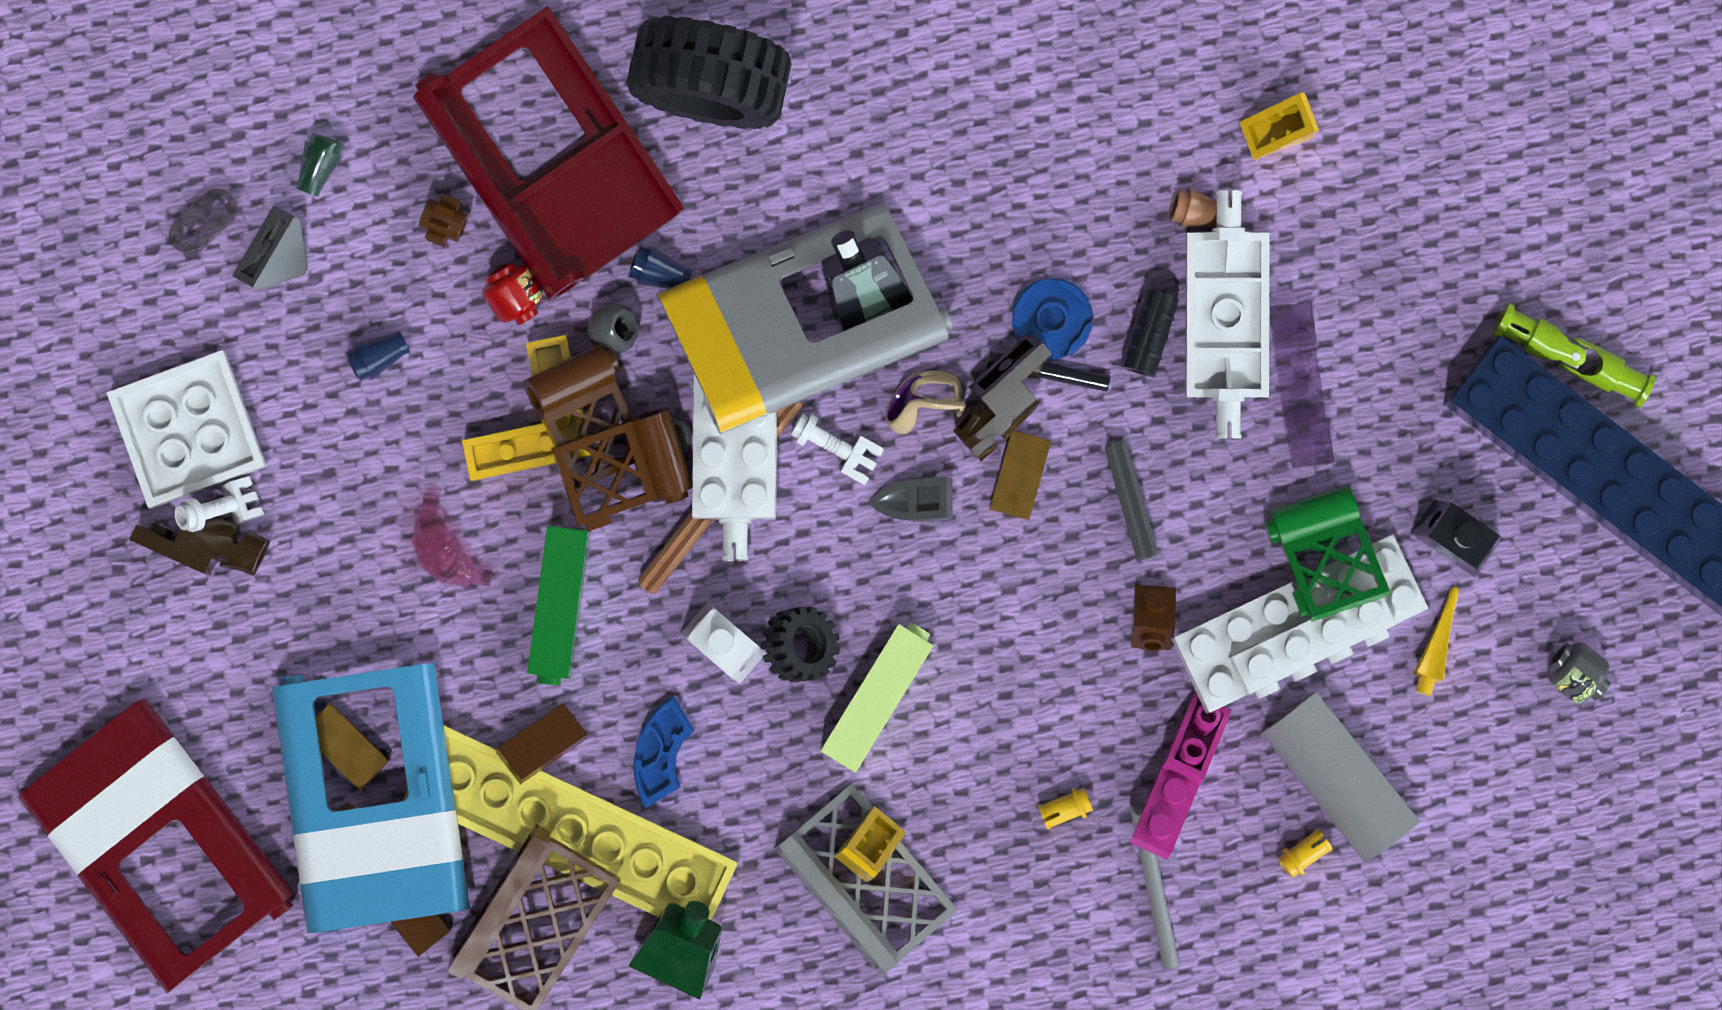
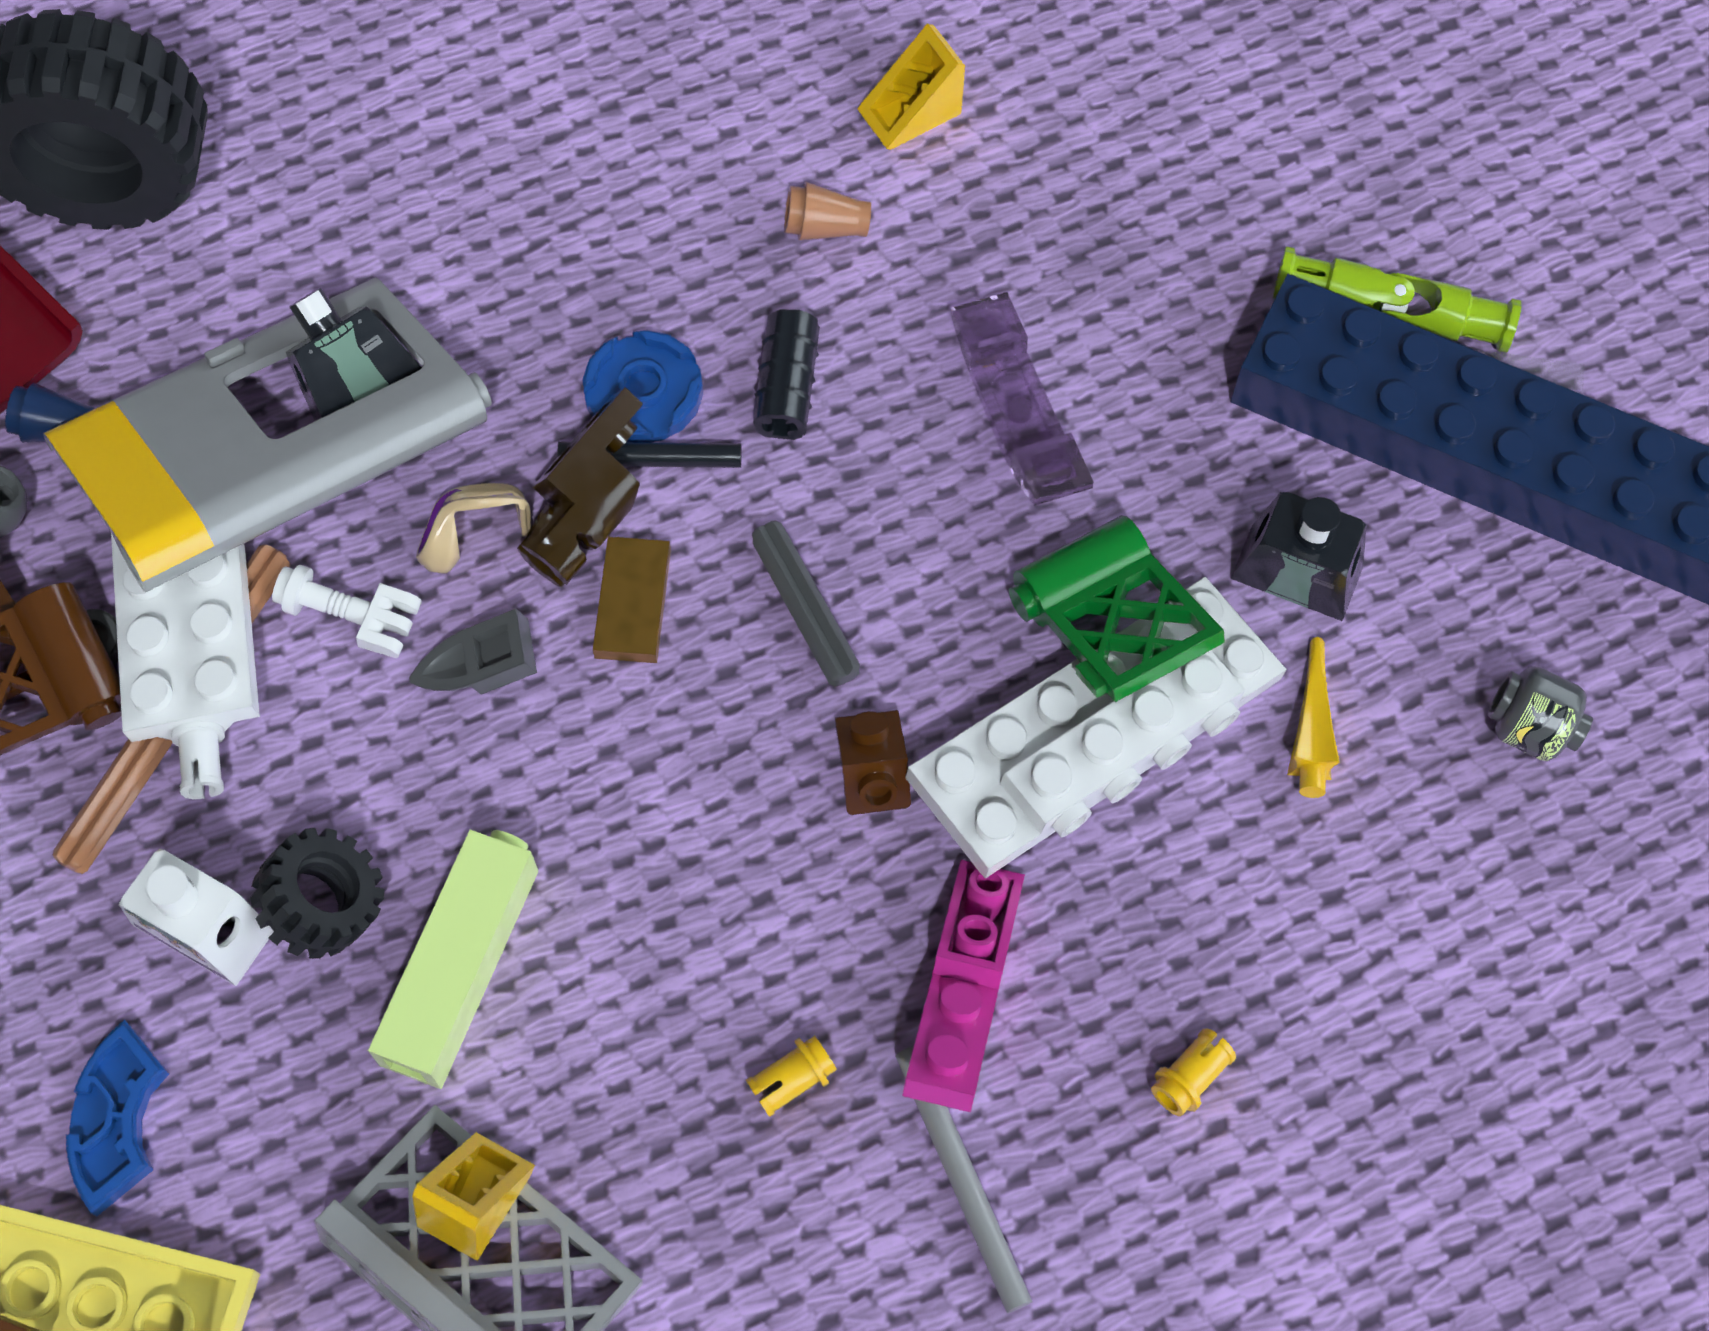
camera: 10 degrees left, 20 degrees down
(1227, 314) = (892, 330): white plate -> none
(1340, 777) = (1220, 939): light grey brick -> none

